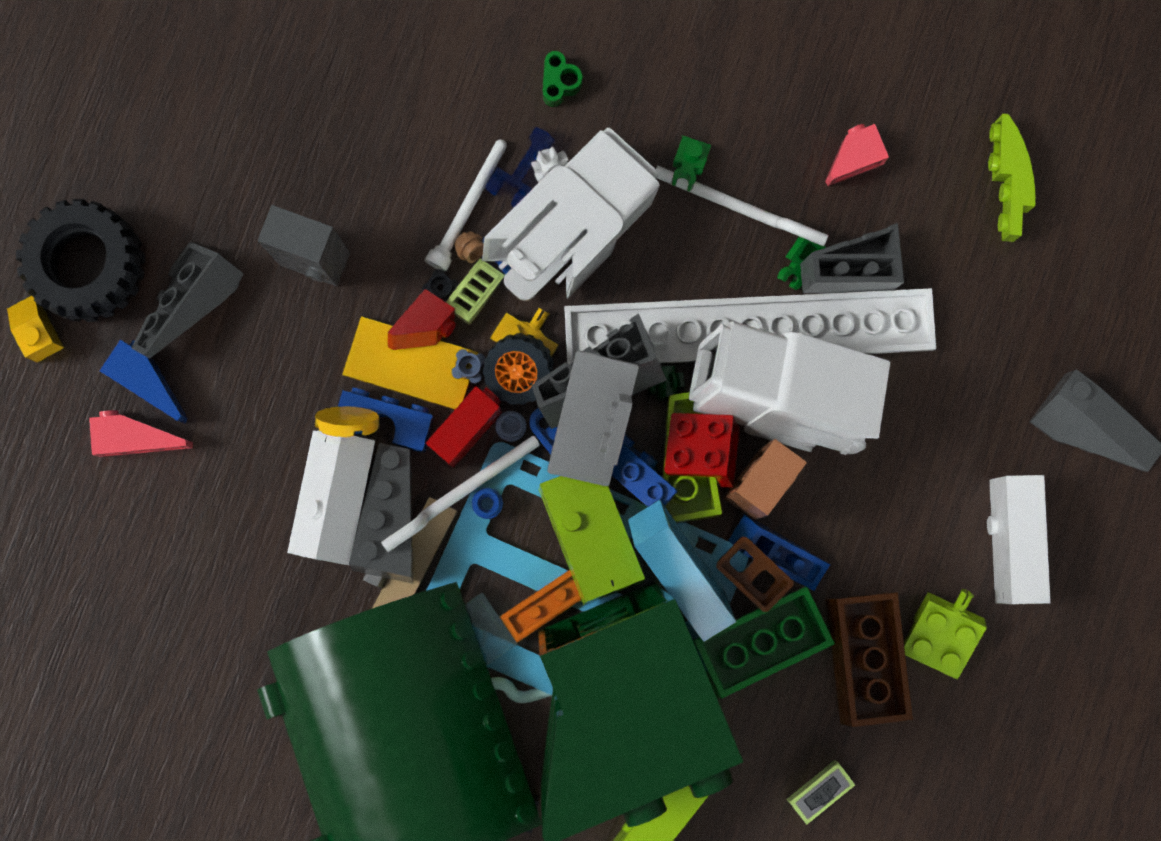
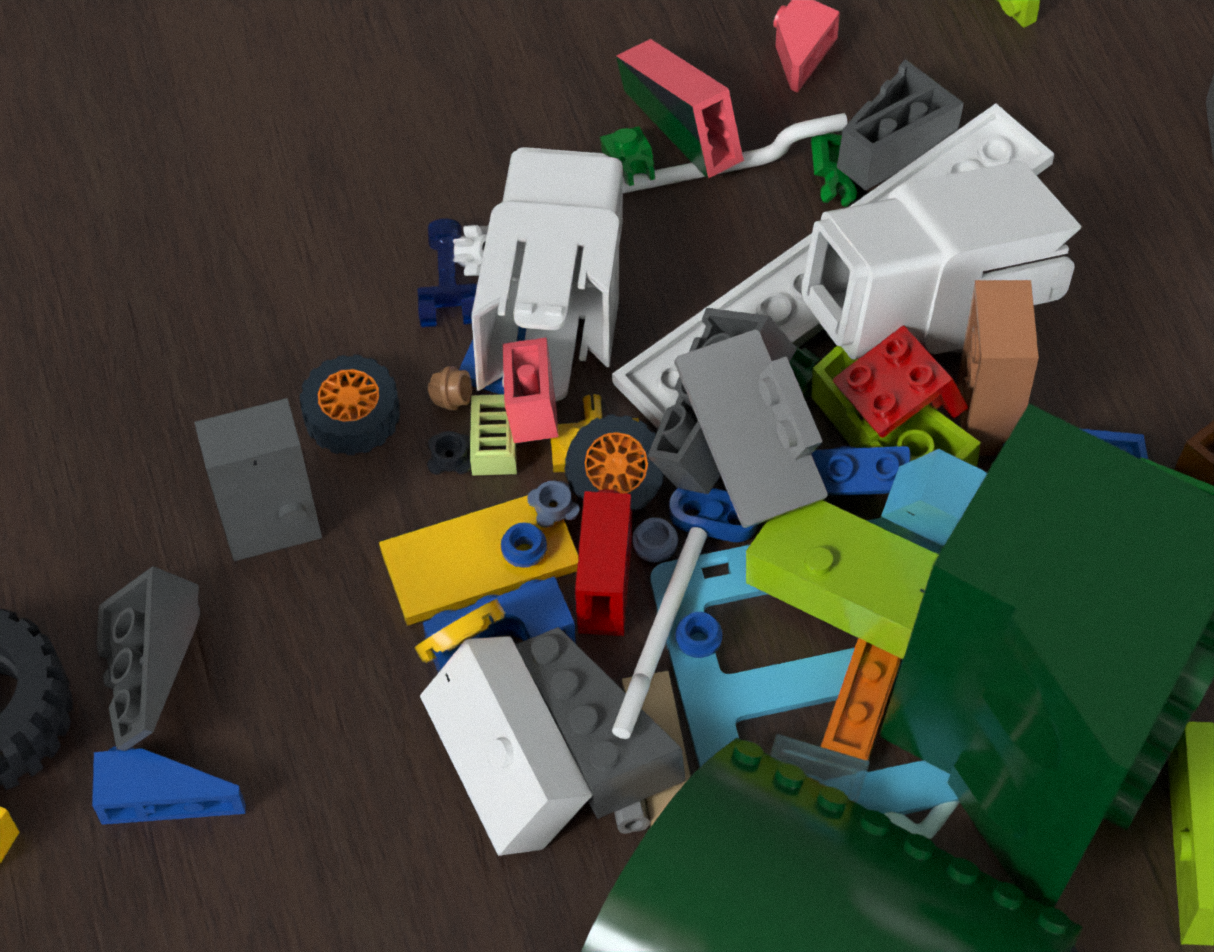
camera: 30 degrees left, 25 degrees down
(121, 435) = (189, 863): coral slope -> none
(407, 215) = (350, 404): none -> black wheel
(422, 323) = (462, 492): red slope -> none
(429, 371) = (523, 534): none -> blue plate
(440, 256) = (423, 418): white piece -> none
(500, 293) = (529, 390): none -> coral slope
(552, 79) = (412, 177): green piece -> none
(741, 153) = (684, 105): none -> coral slope

